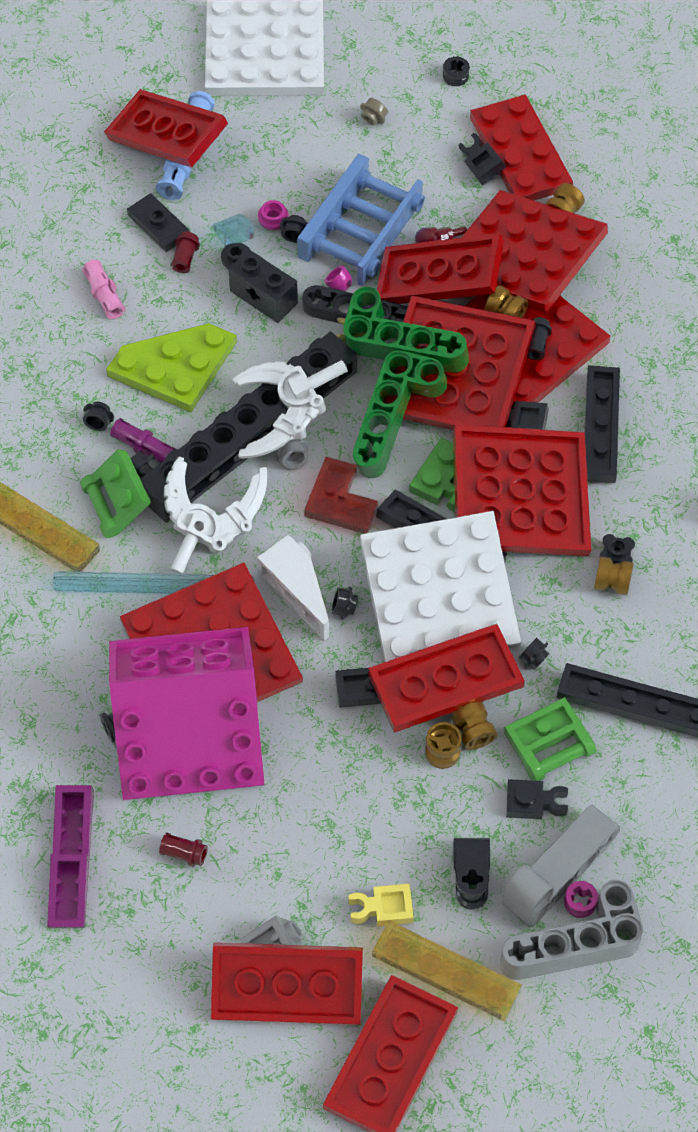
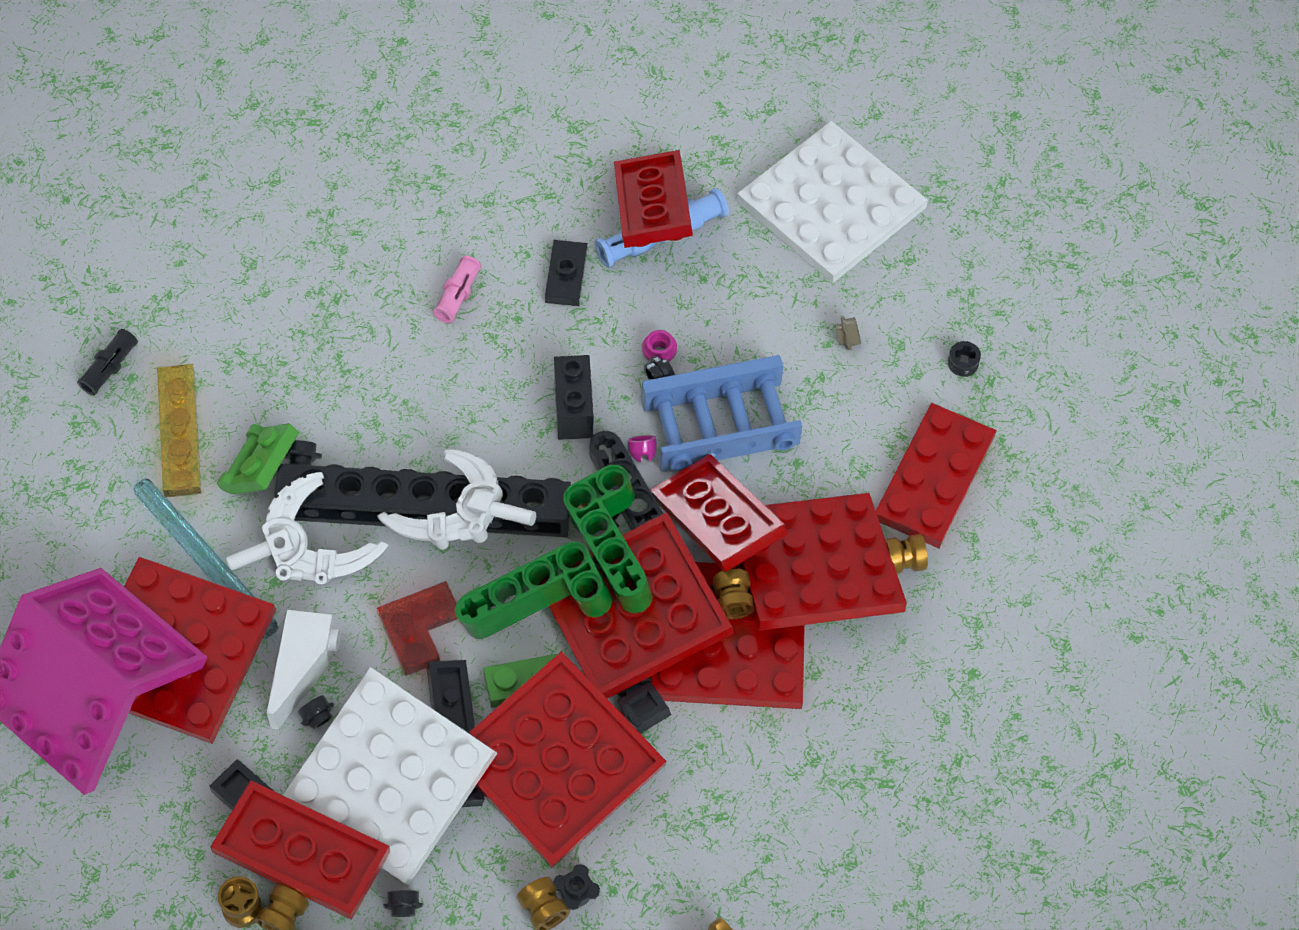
camera: 45 degrees right, 0 degrees up
(97, 416) = (327, 385): black plate -> none
(140, 440) = (332, 434): magenta pin -> none
(175, 364) = (437, 399): lime plate -> none
(187, 245) = (553, 314): dark red pin -> none
(228, 253) = (593, 346): black plate -> none
(234, 229) = (615, 331): clear light blue slope -> none
(293, 454) = (428, 556): light grey plate -> none
(433, 234) = (763, 485): dark red piece -> none
(482, 160) = (885, 456): black plate -> none
(539, 339) = (728, 646): black pin -> none
(602, 423) = (699, 769): black plate -> none

